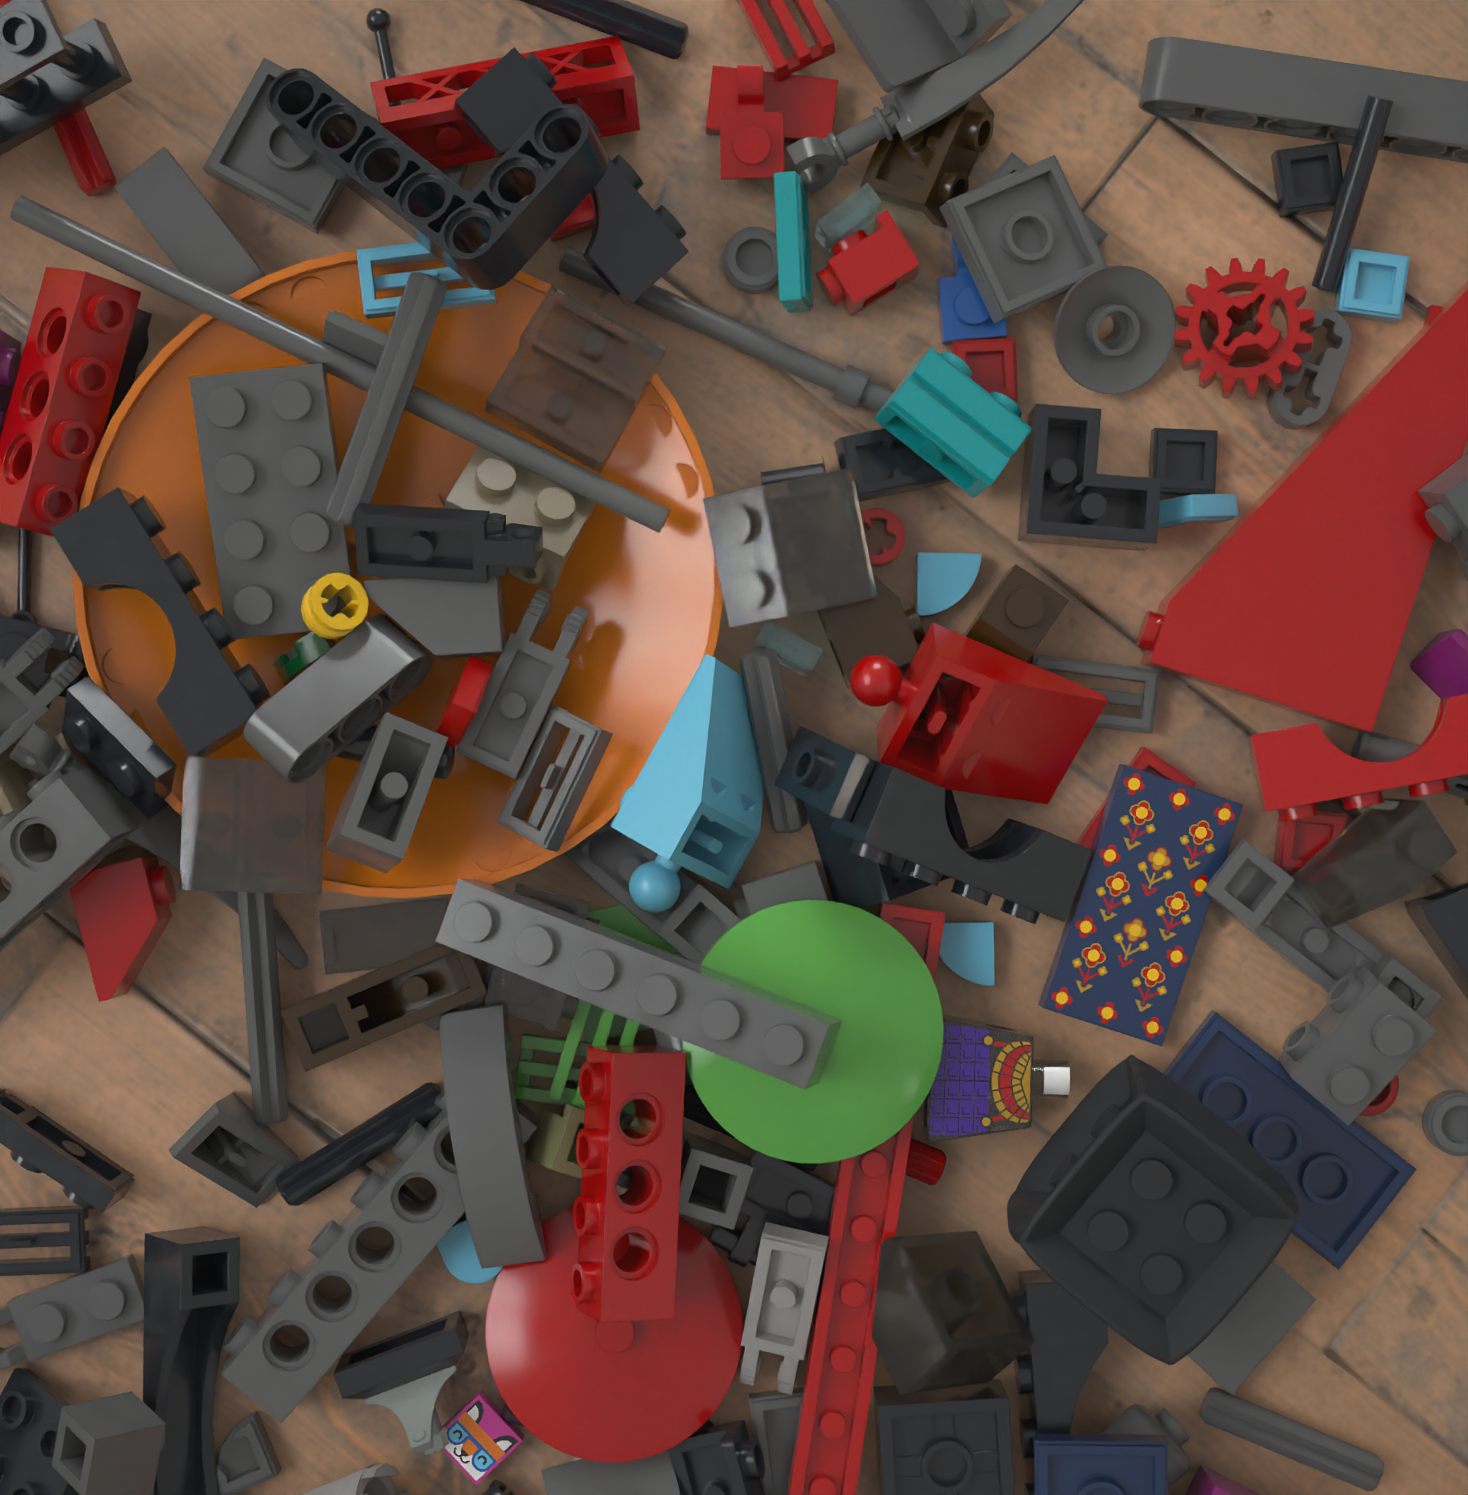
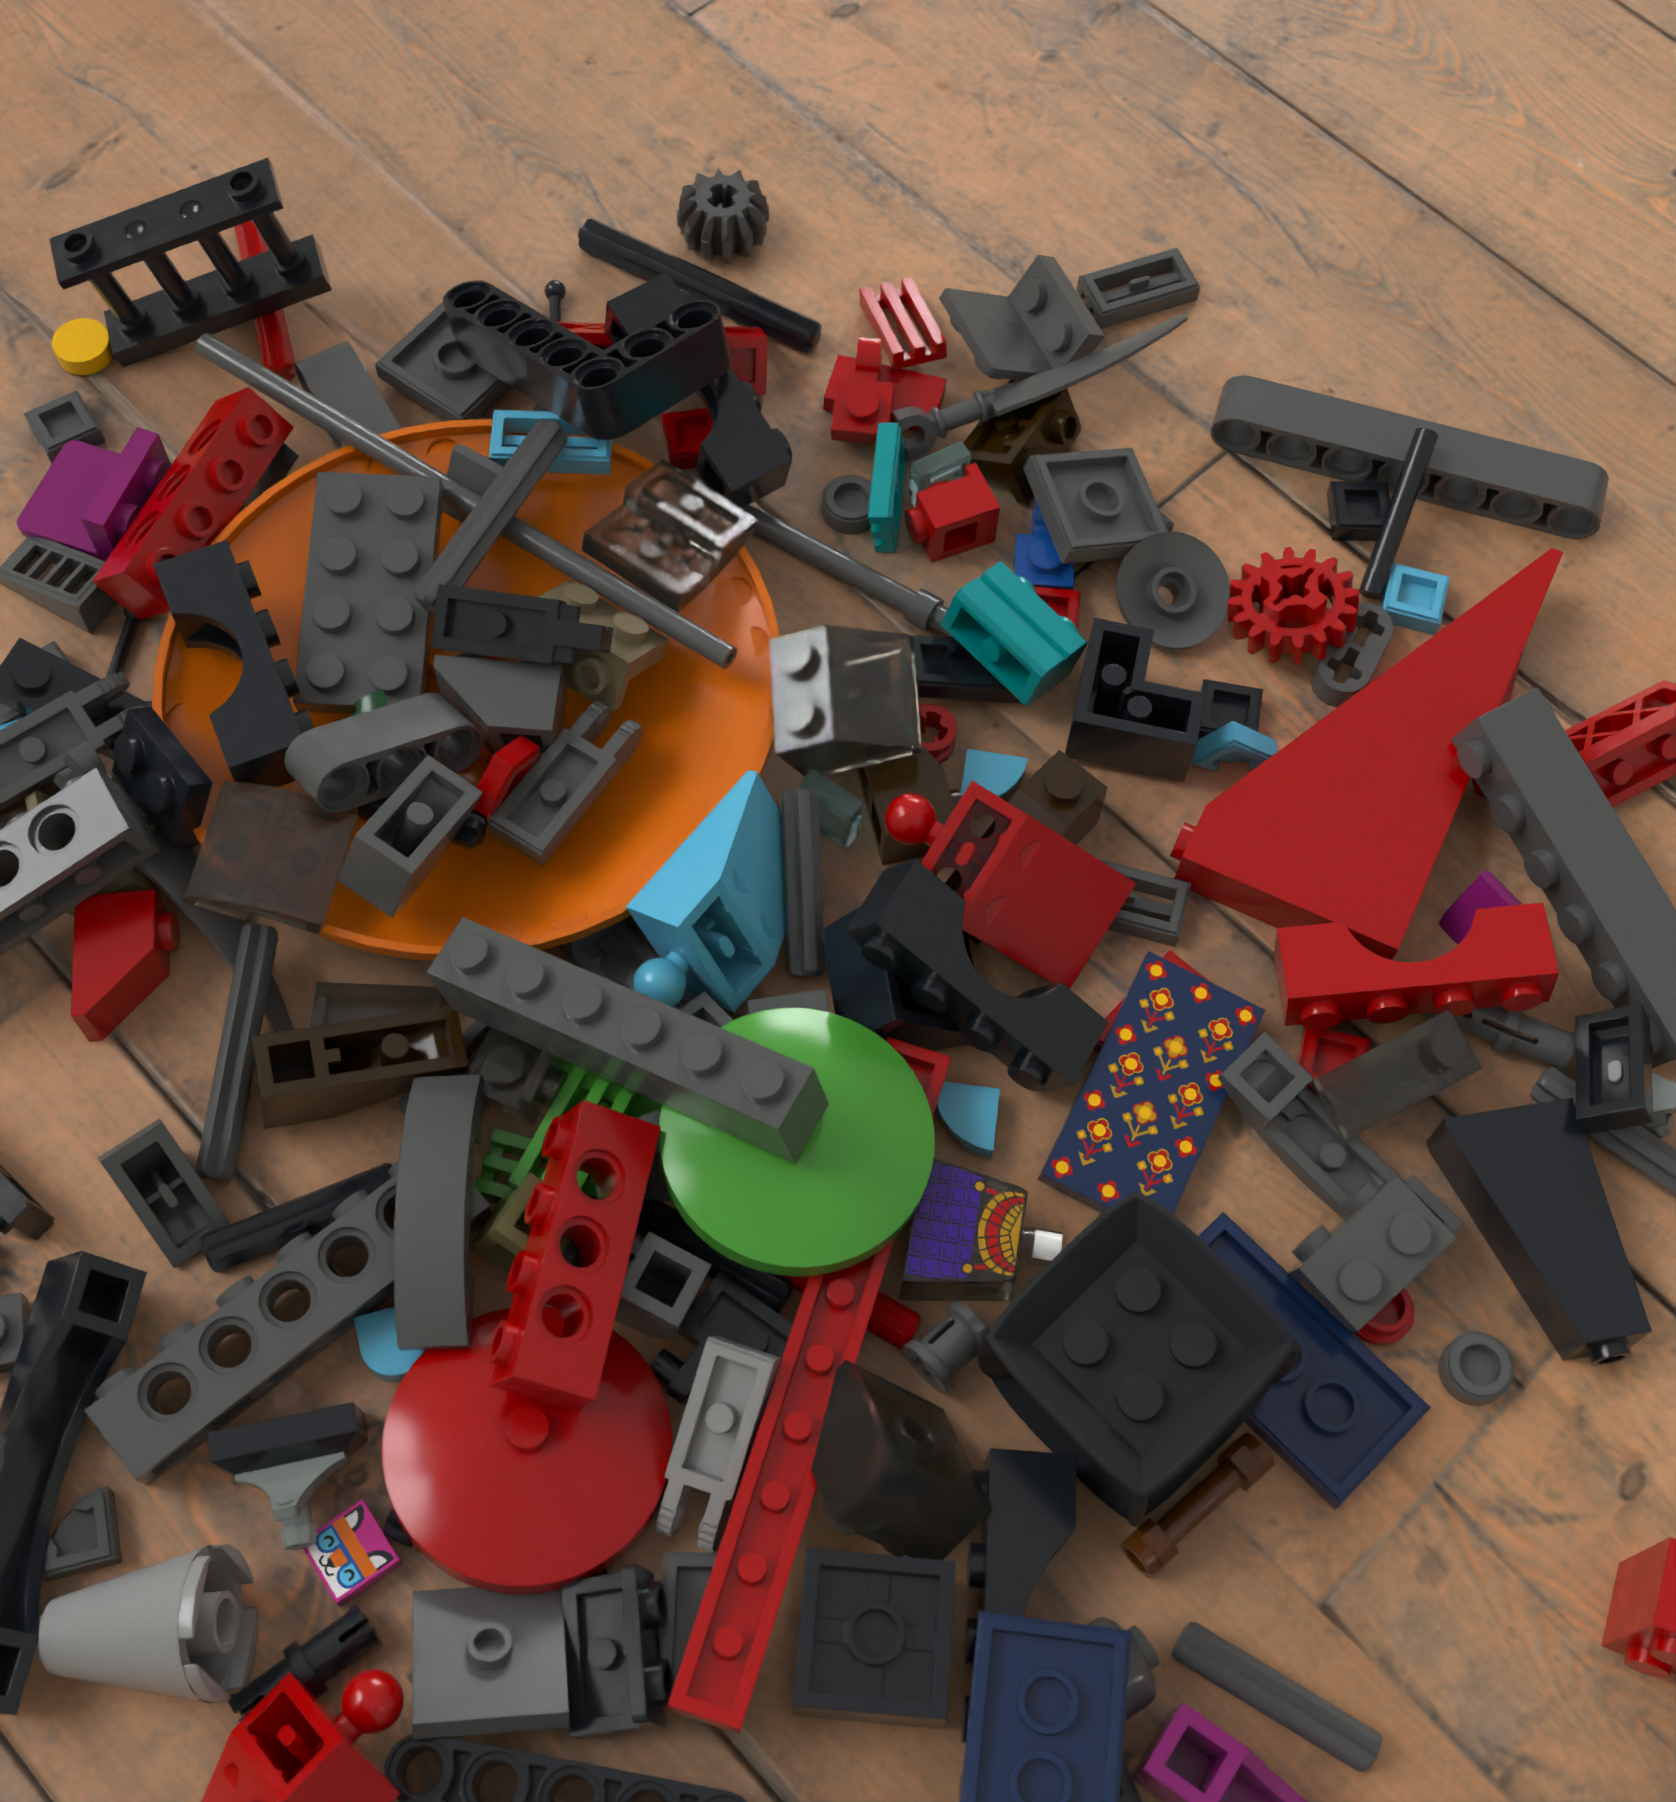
camera: 10 degrees right, 25 degrees down
(329, 586) = (401, 668): yellow bush -> none
(562, 782) = (579, 863): dark grey tile -> none
(825, 774) = (848, 888): black plate -> none
(976, 1182) = (947, 1347): none -> dark grey bush
(1252, 1328) = (1234, 1554): dark grey tile -> none

